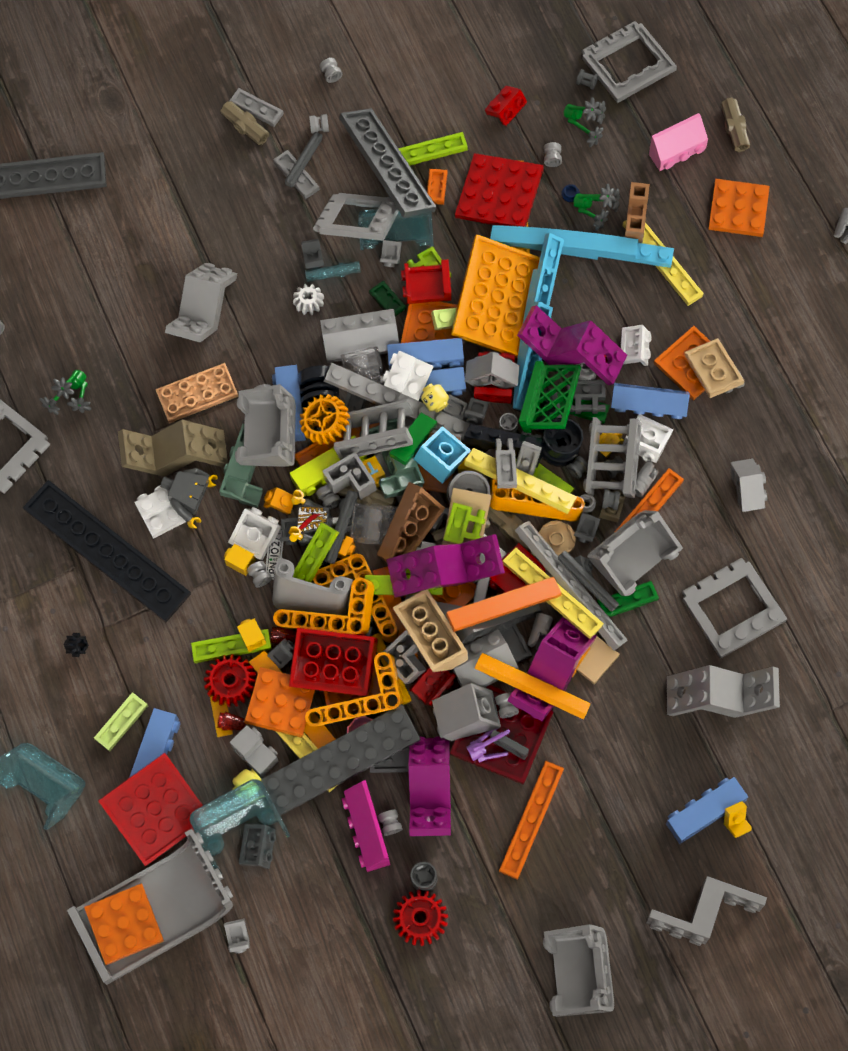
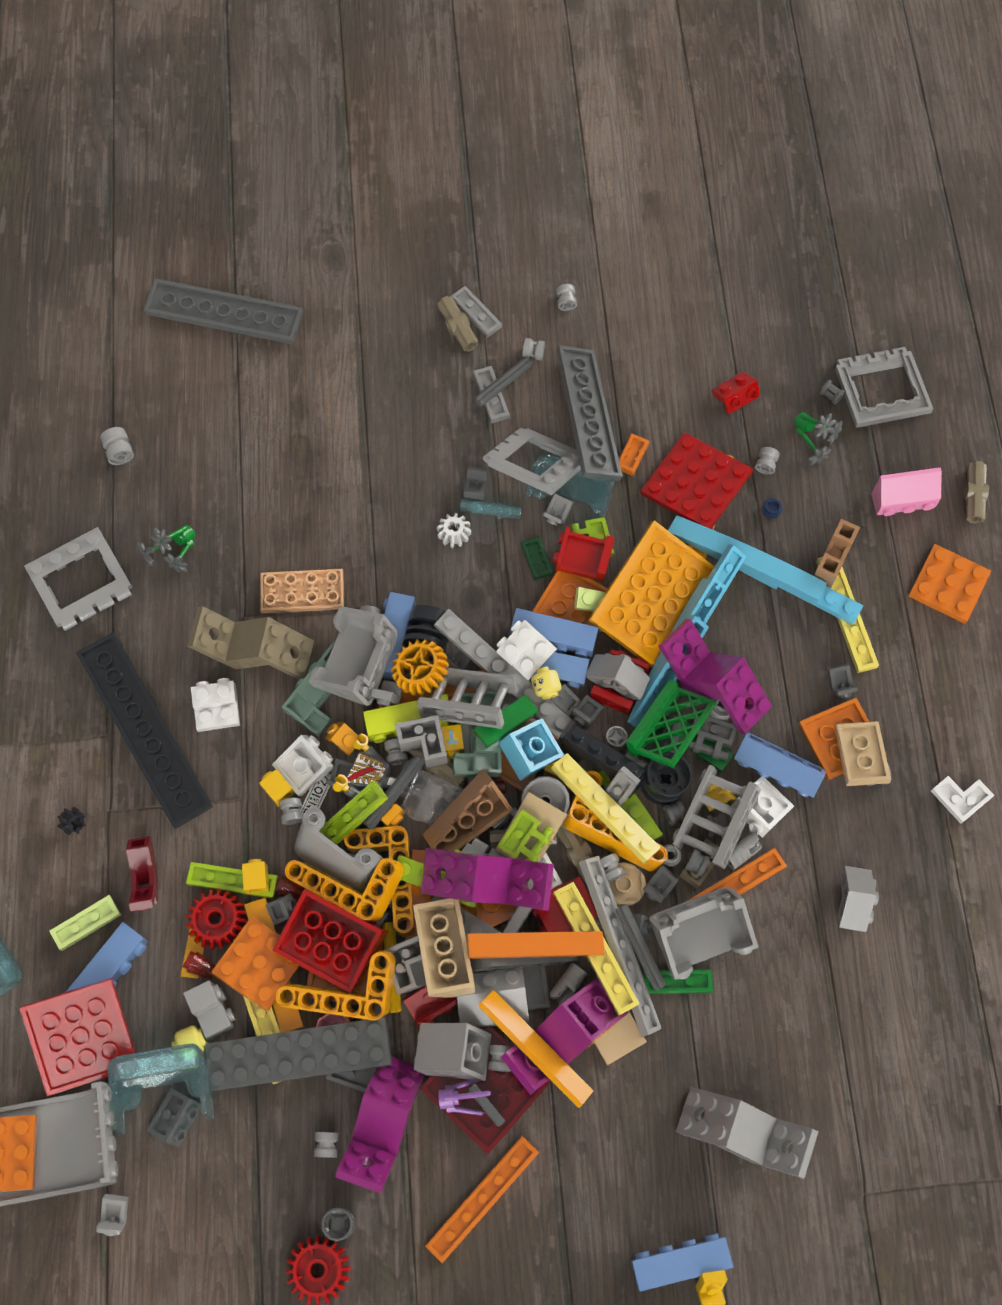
camera: 15 degrees right, 0 degrees up
(153, 665) = (143, 874): none -> dark red arch
(187, 492) = (249, 695): dark grey torso -> none
(201, 302) = (339, 497): light grey bracket -> none
(305, 451) = (389, 694): none -> light grey bracket
(358, 333) = (492, 587): light grey slope -> none
(365, 363) = (485, 621): clear slope -> none
(366, 826) = (298, 1141): dark pink slope -> none
(434, 148) = (644, 414): lime plate -> none
(505, 465) = (593, 787): light grey hinge -> none
(543, 527) = (612, 867): none -> light grey wheel
(585, 201) = (784, 522): plant -> none
(636, 344) = (785, 697): white bracket -> none
(676, 316) = (841, 681): none -> dark grey bracket
(745, 631) = (798, 1065): light grey hinge -> none
(808, 381) = (962, 803): none -> white plate

